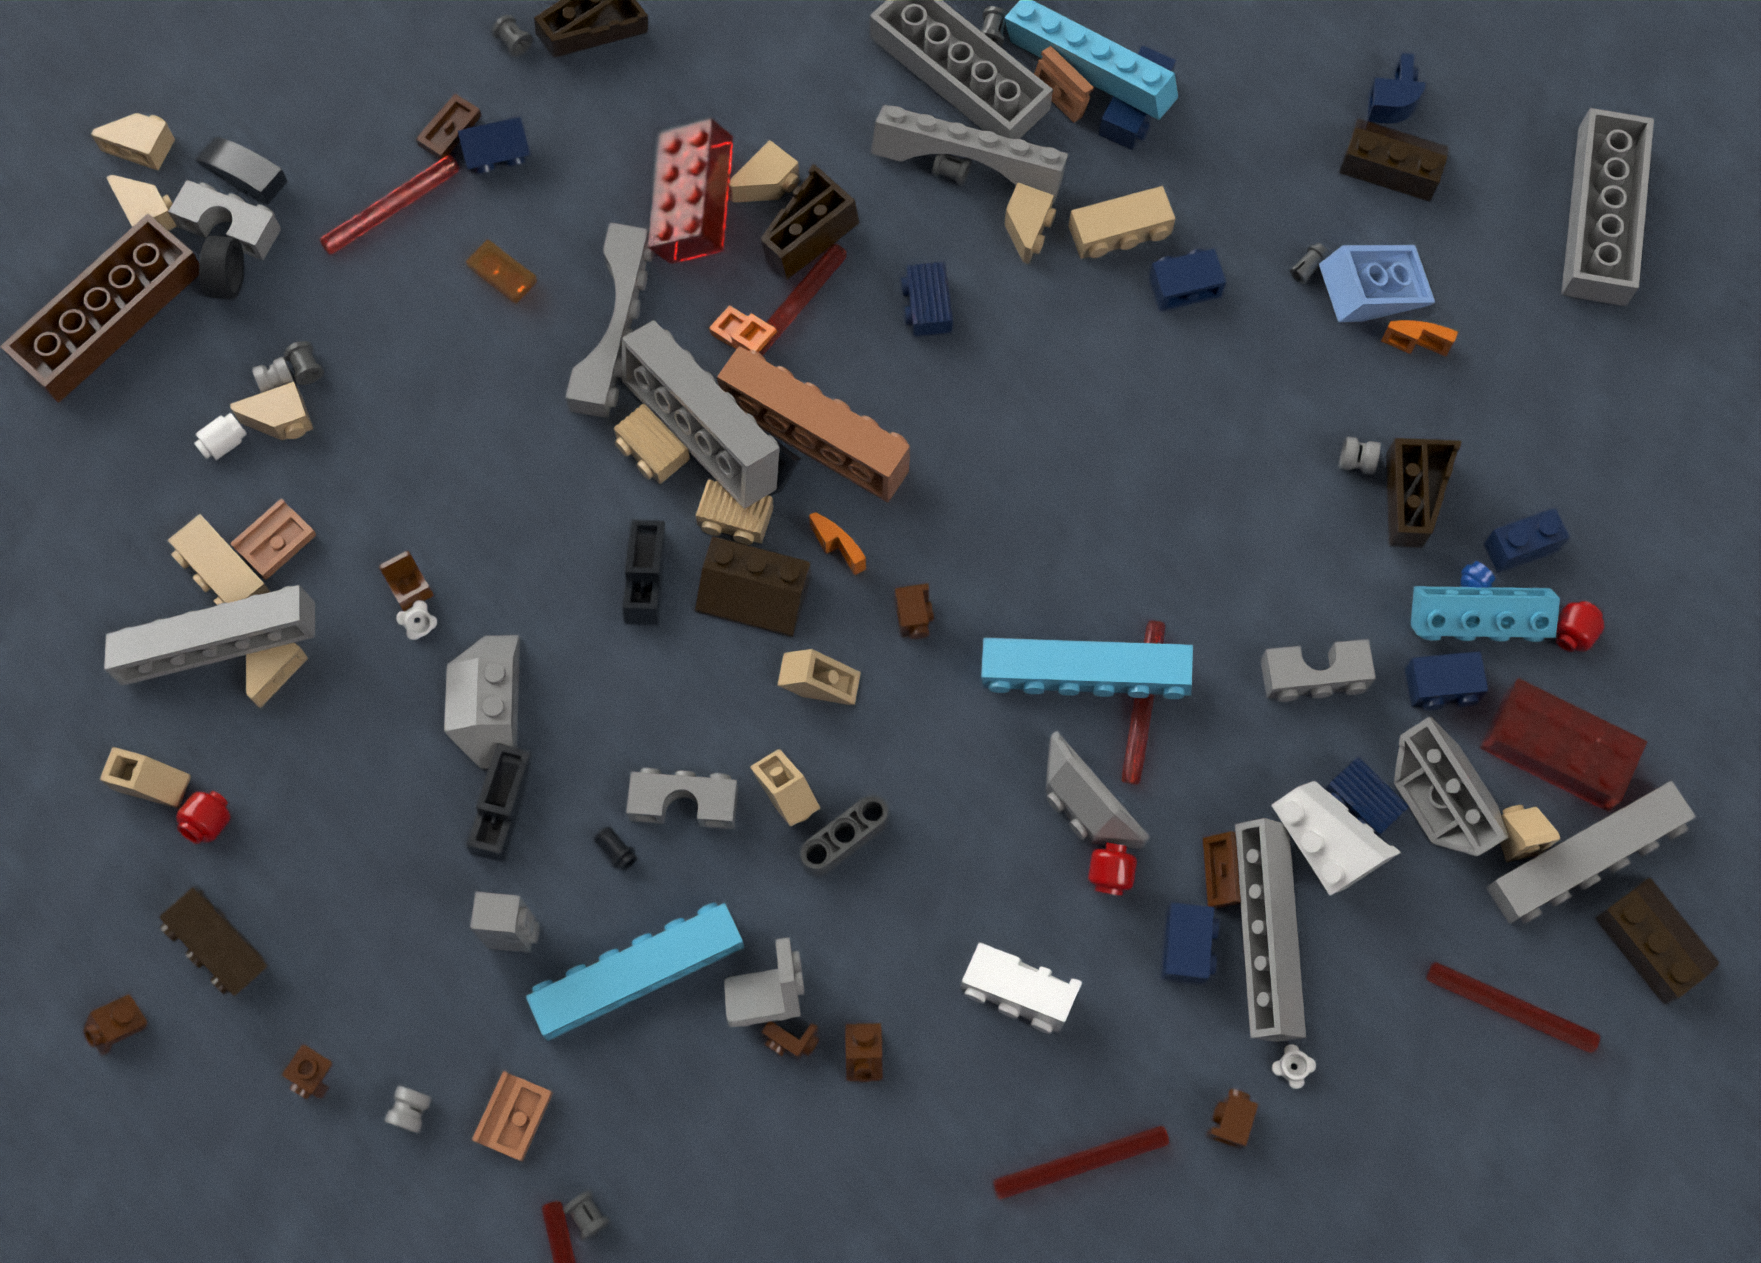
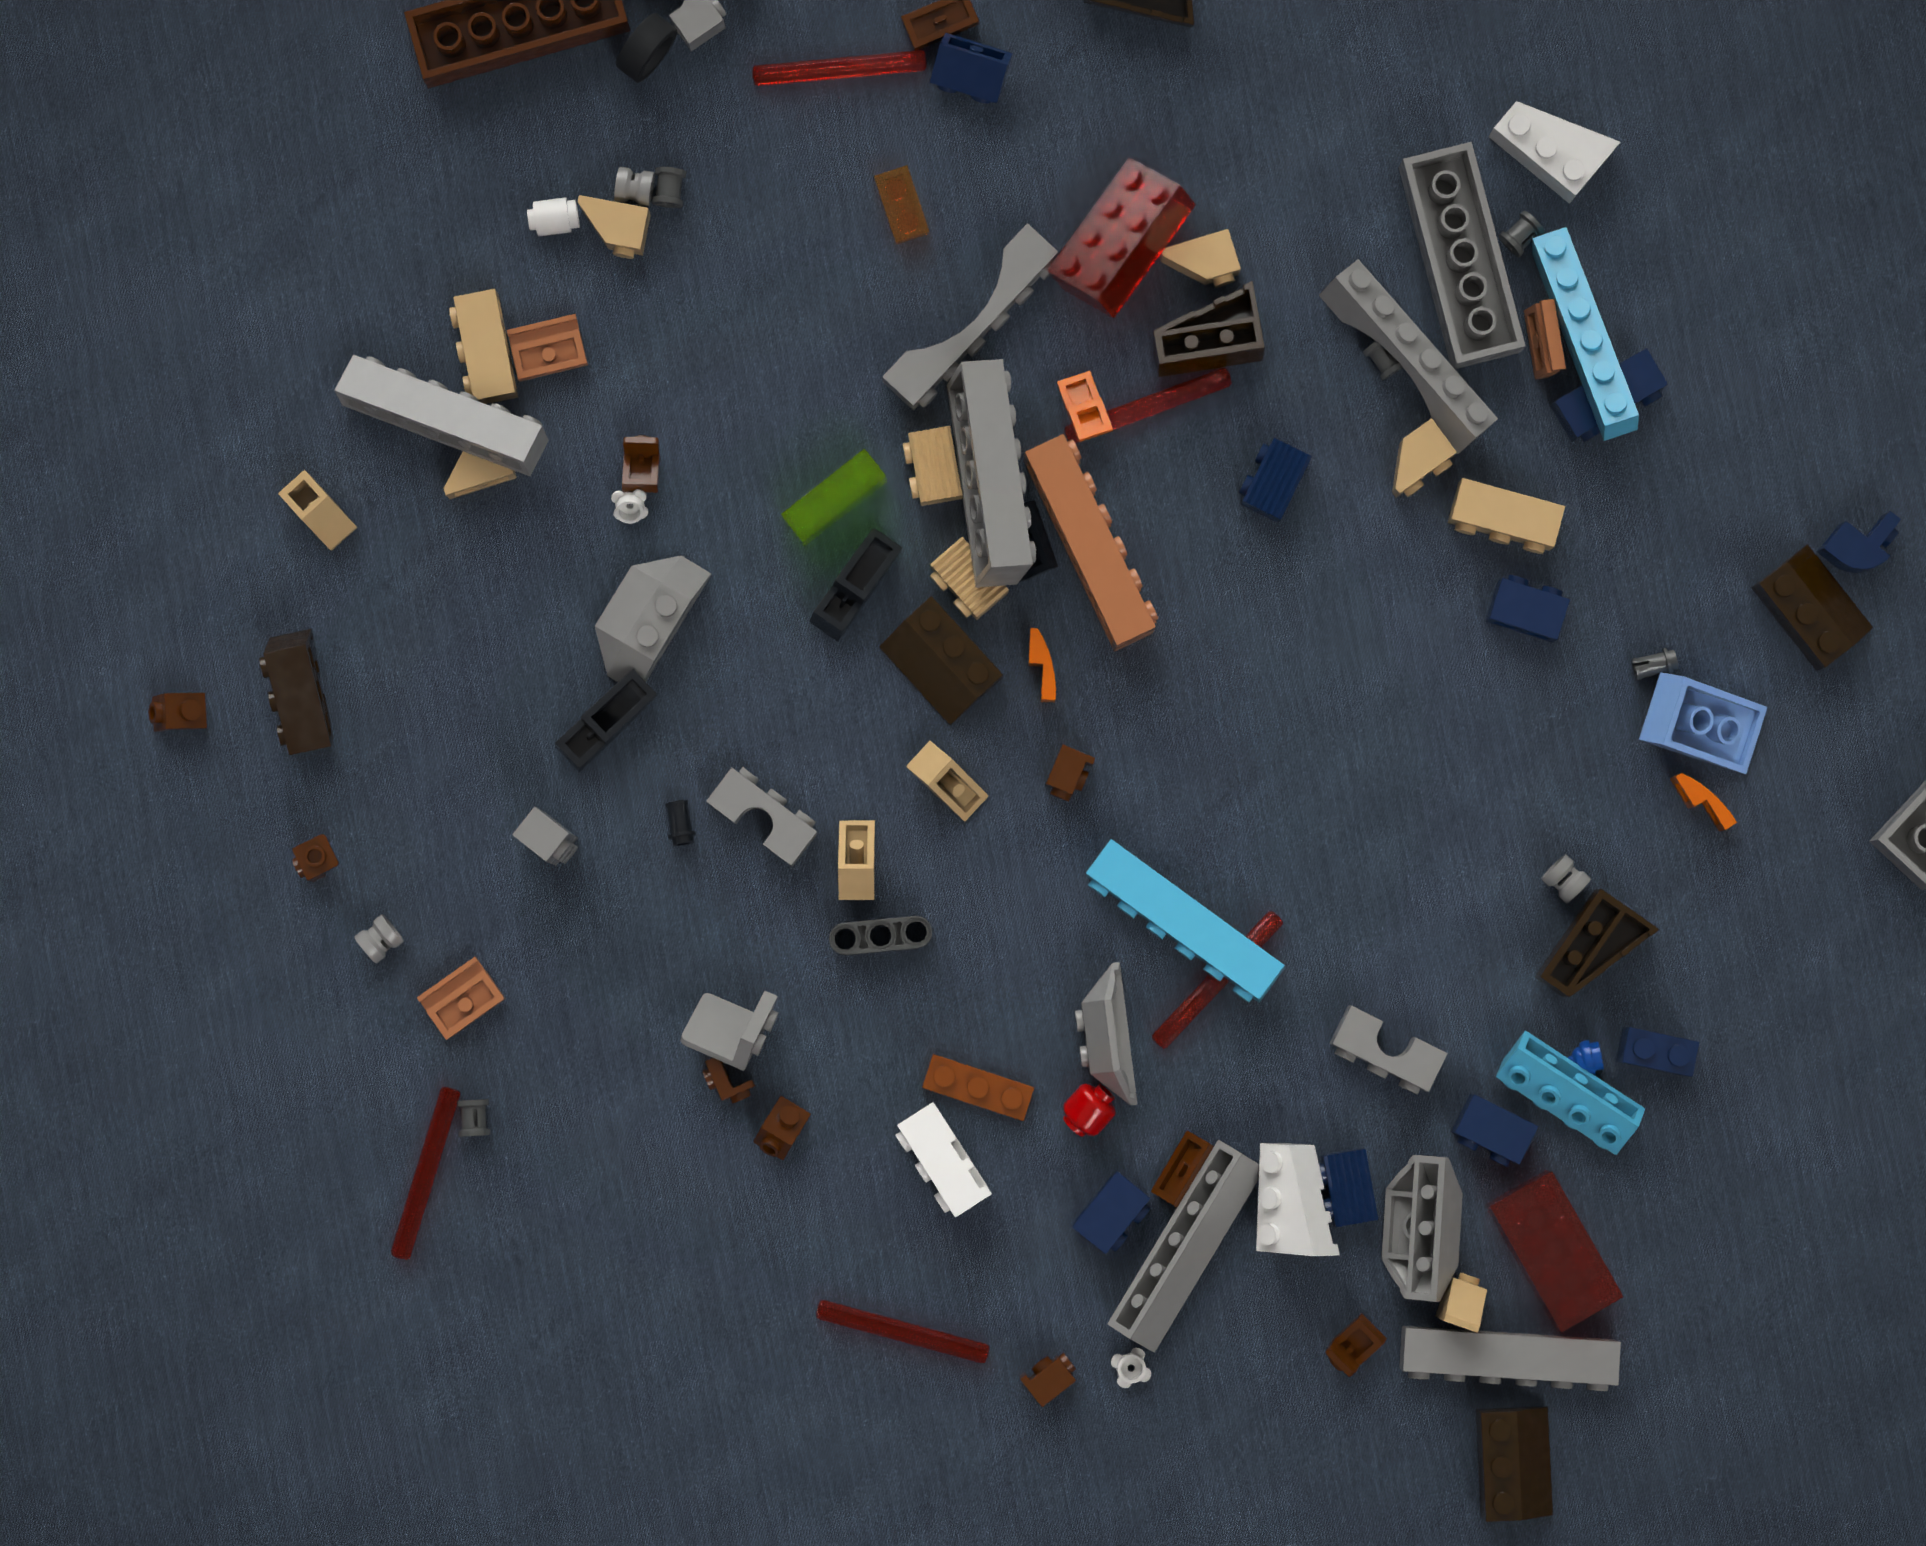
camera: 30 degrees right, 15 degrees up
(203, 817) = (347, 574): red head -> none
(584, 514) = (834, 497): none -> clear neon green brick
(634, 971) = (633, 941): medium azure brick -> none
(1007, 912) = (978, 1087): none -> dark orange plate
(1462, 924) = (1354, 1345): none -> reddish brown bracket
(1513, 1007) = (1349, 1437): clear red axle -> none
(1579, 626) = (1645, 1157): red head -> none

